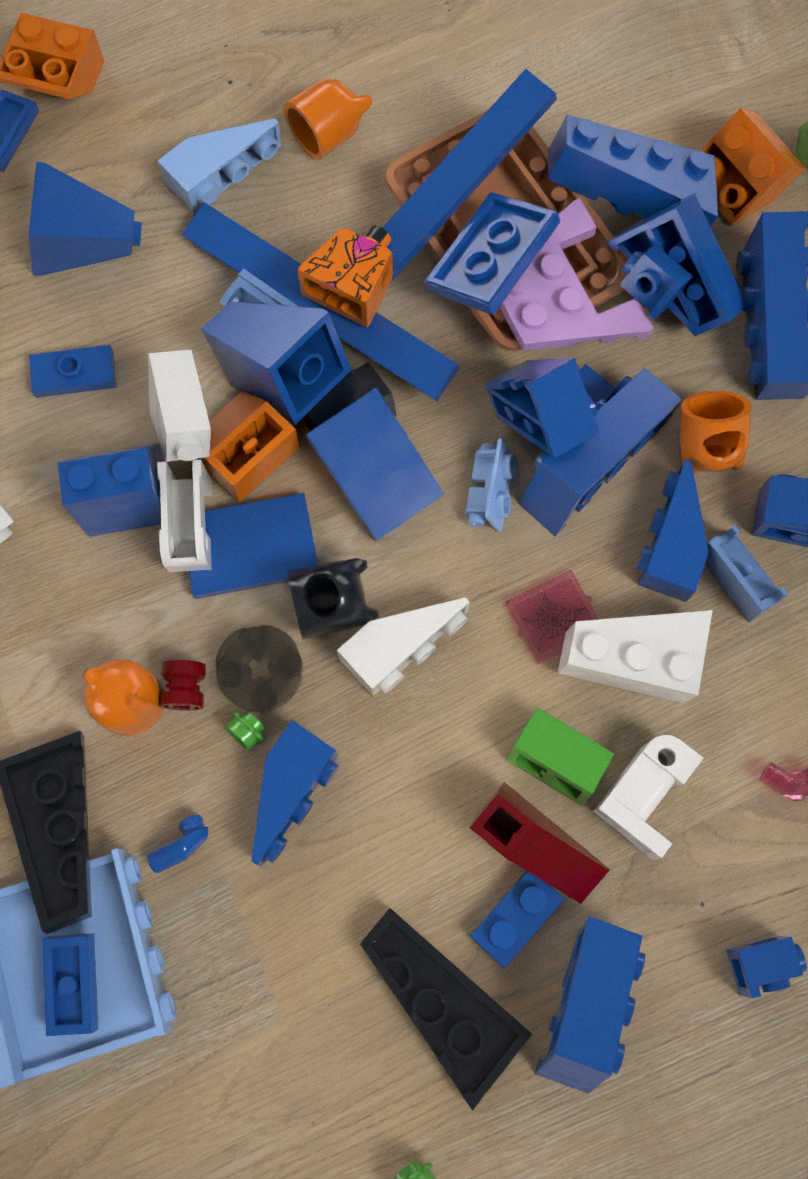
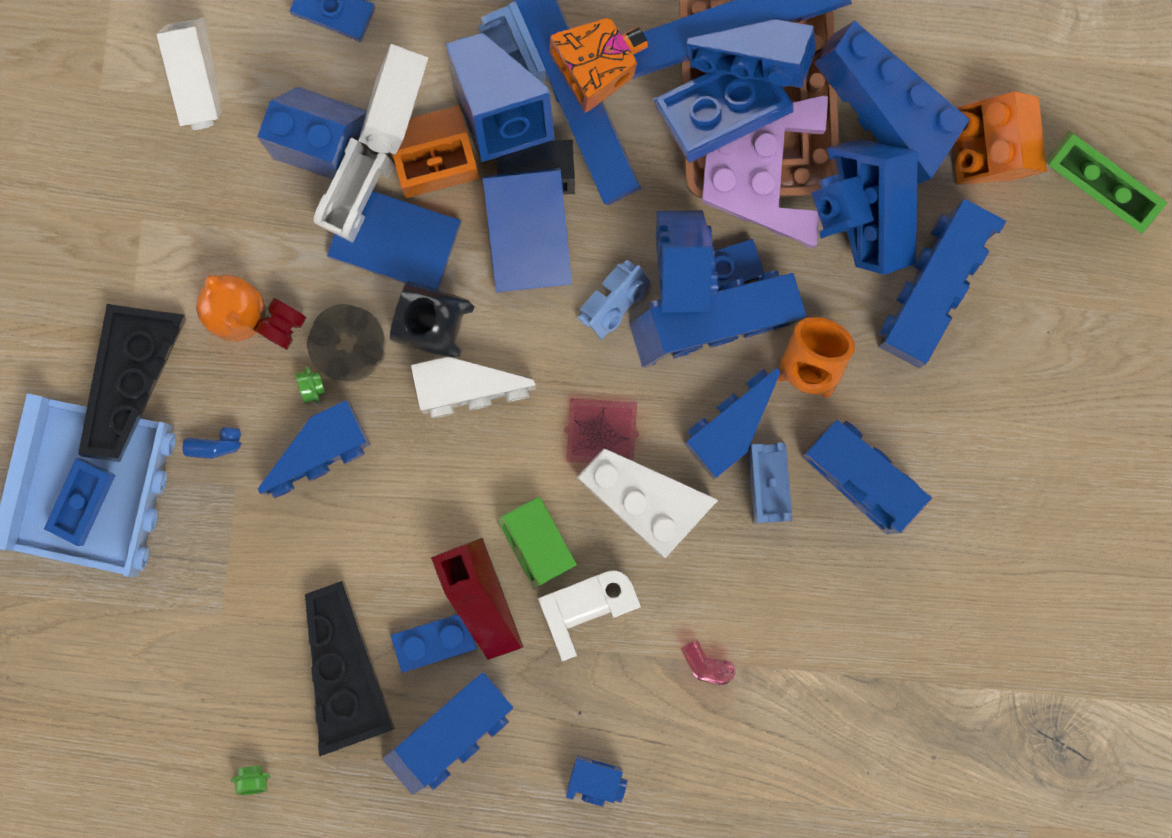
camera: 25 degrees right, 10 degrees up
(498, 184) = (761, 51): none -> slope

